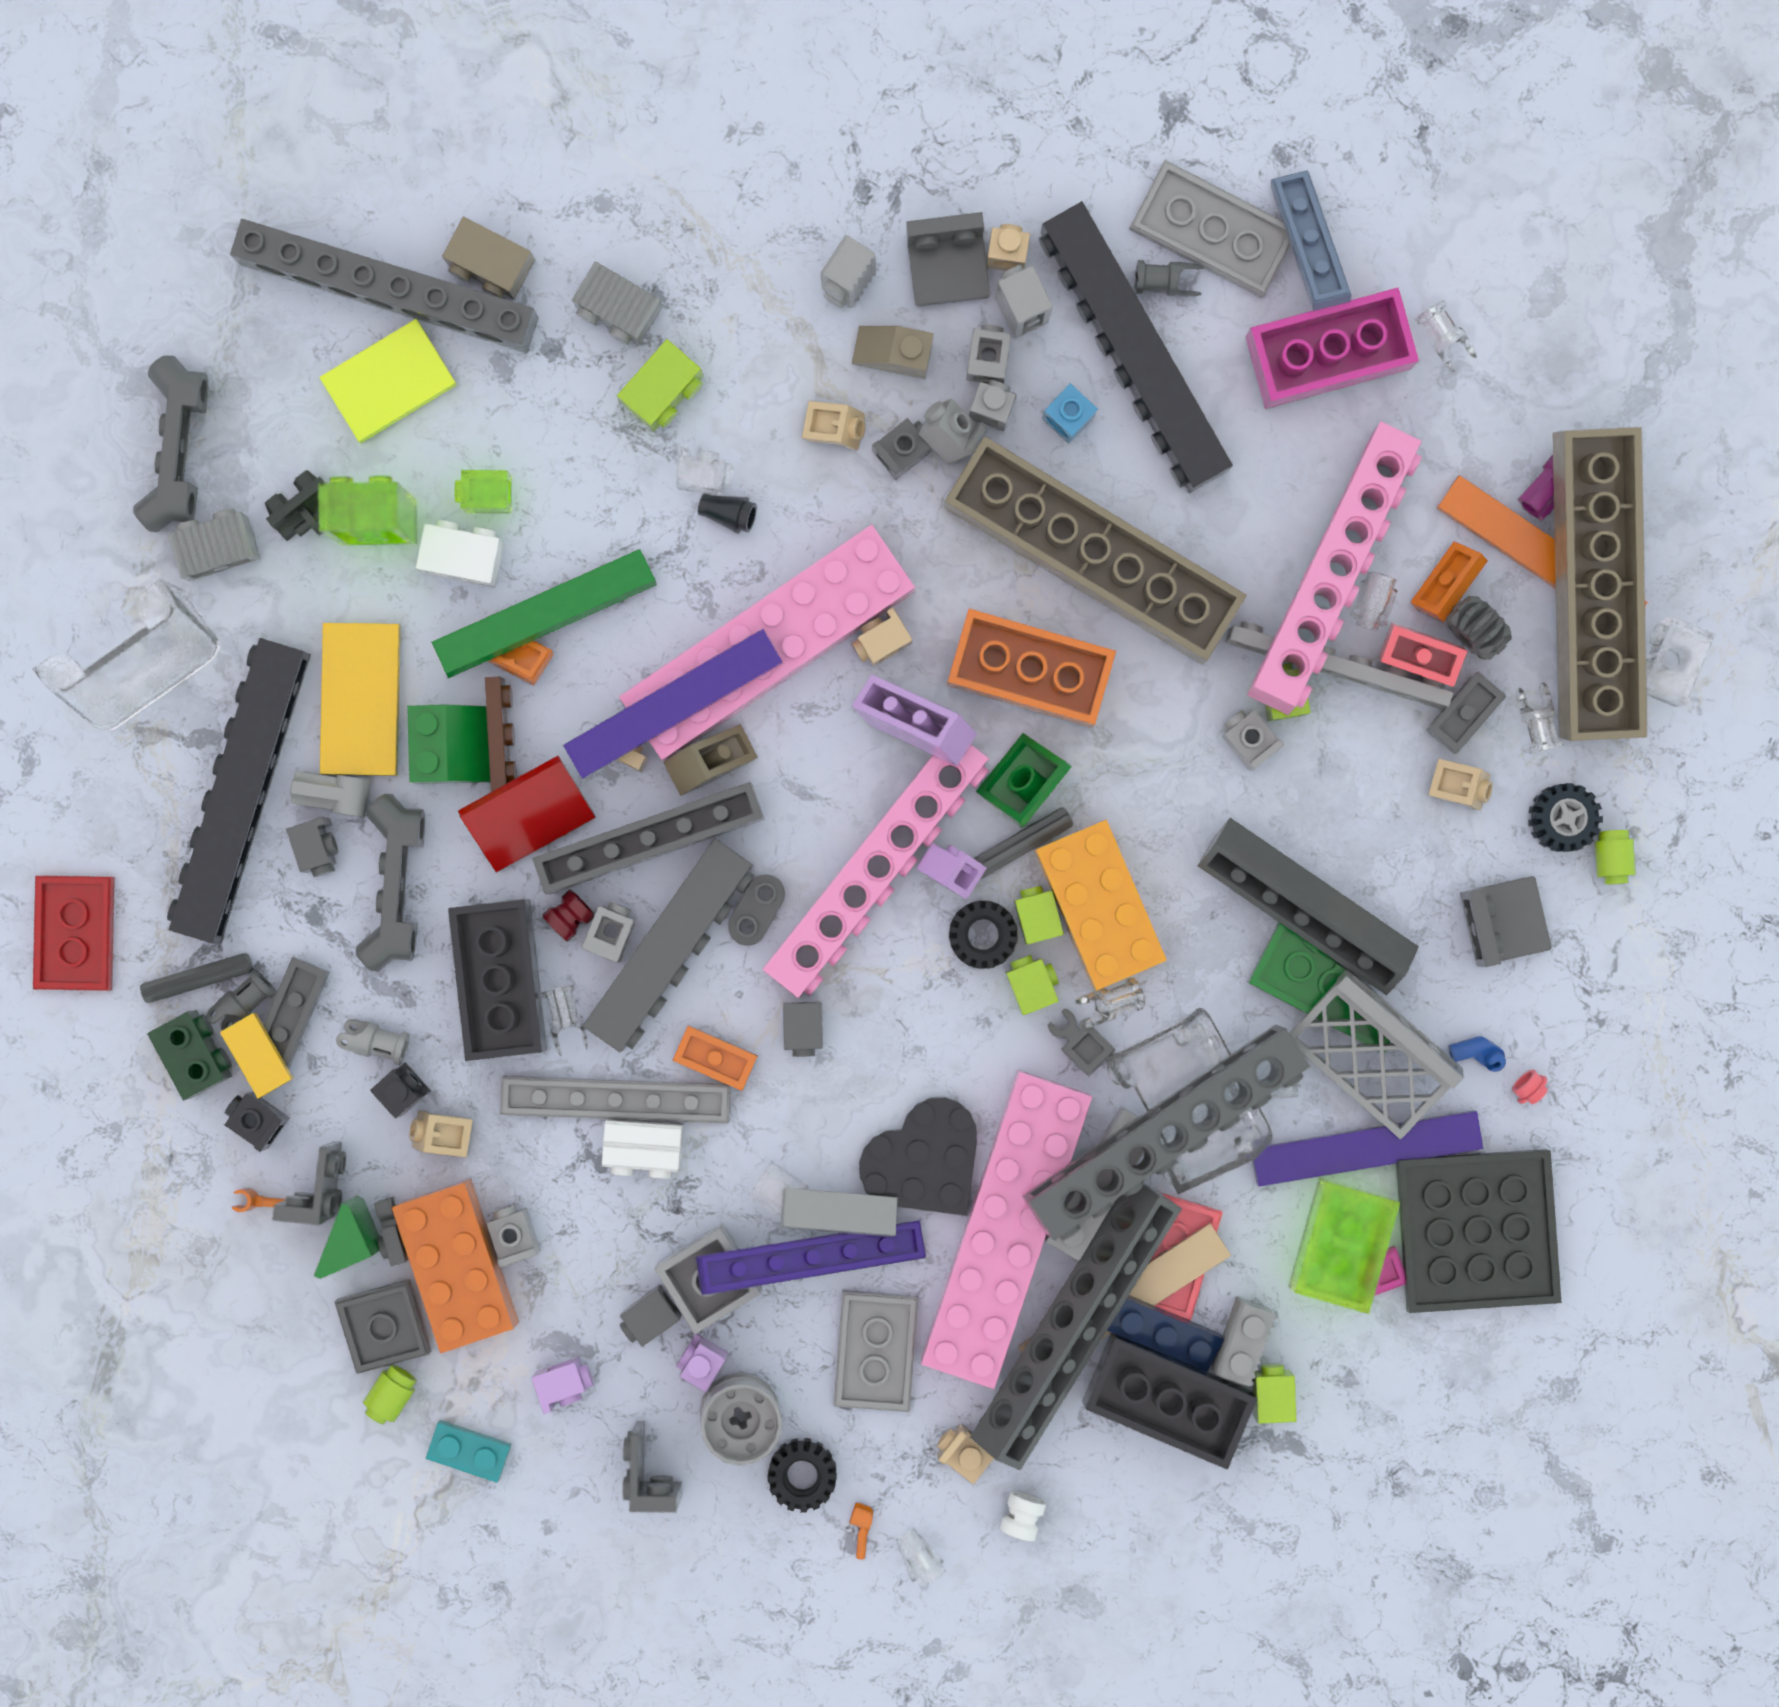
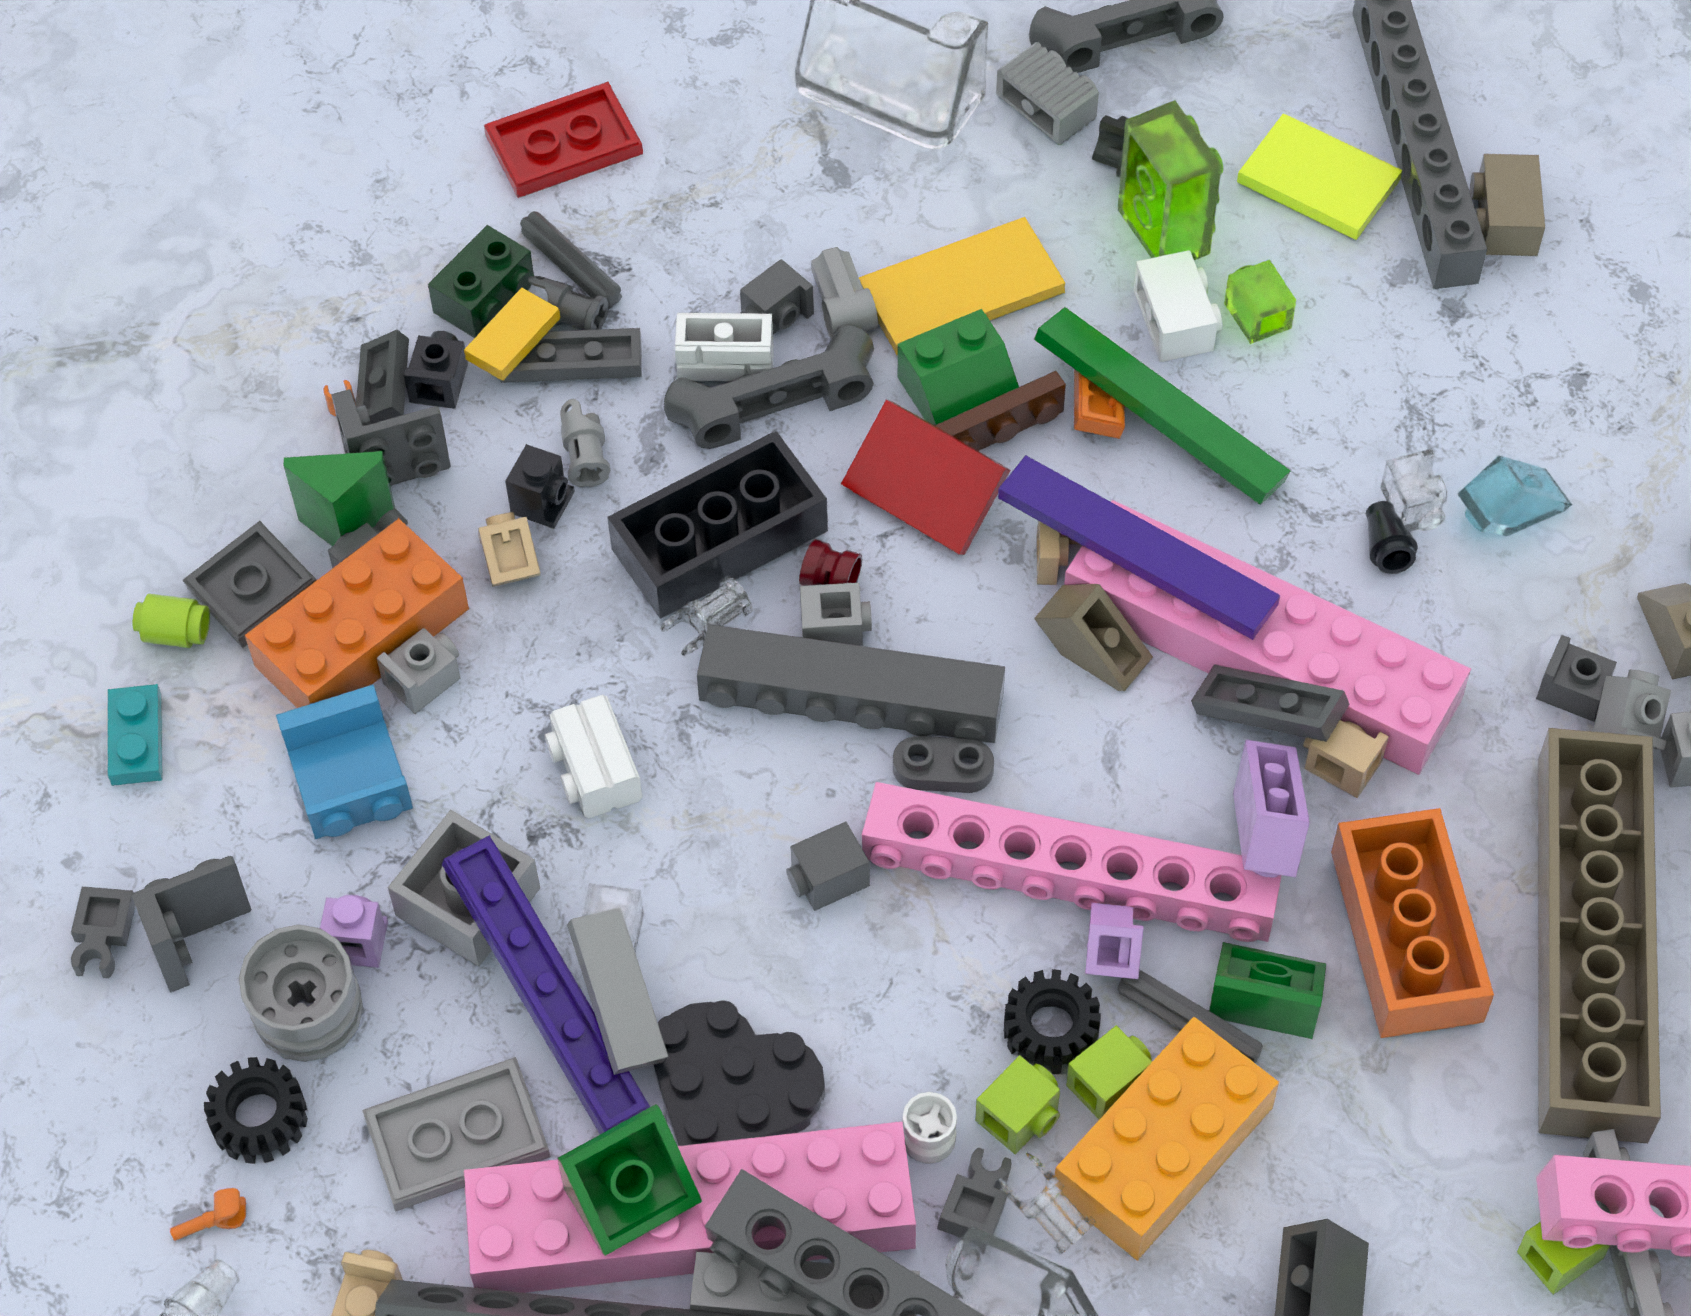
camera: 70 degrees right, 30 degrees down
(238, 791) = (798, 214): black brick -> none
(246, 1164) = (382, 376): none -> dark grey plate
(343, 905) = (723, 345): none -> white brick
(562, 1383) = (259, 789): lavender brick -> none
(566, 1316) = (344, 762): none -> dark azure panel
(612, 1525) = (100, 921): none -> dark grey plate
(615, 1099) = (640, 715): light grey tile -> none
(616, 303) = (1544, 337): light grey brick -> none
(648, 838) = (968, 606): dark grey brick -> none
(649, 1316) = (382, 846): dark grey brick -> none
(661, 386) = (1484, 413): lime brick -> none
(715, 1058) = (740, 791): orange plate -> none
(740, 406) = (1511, 497): none -> clear light blue slope
(827, 671) = (1270, 702): none -> dark grey plate
(834, 424) = (1559, 600): tan bracket -> none
(993, 1269) = (628, 1180): none -> green slope
(1025, 1054) = (931, 1115): none -> white wheel
(1250, 754) = (1477, 1245): light grey brick -> none

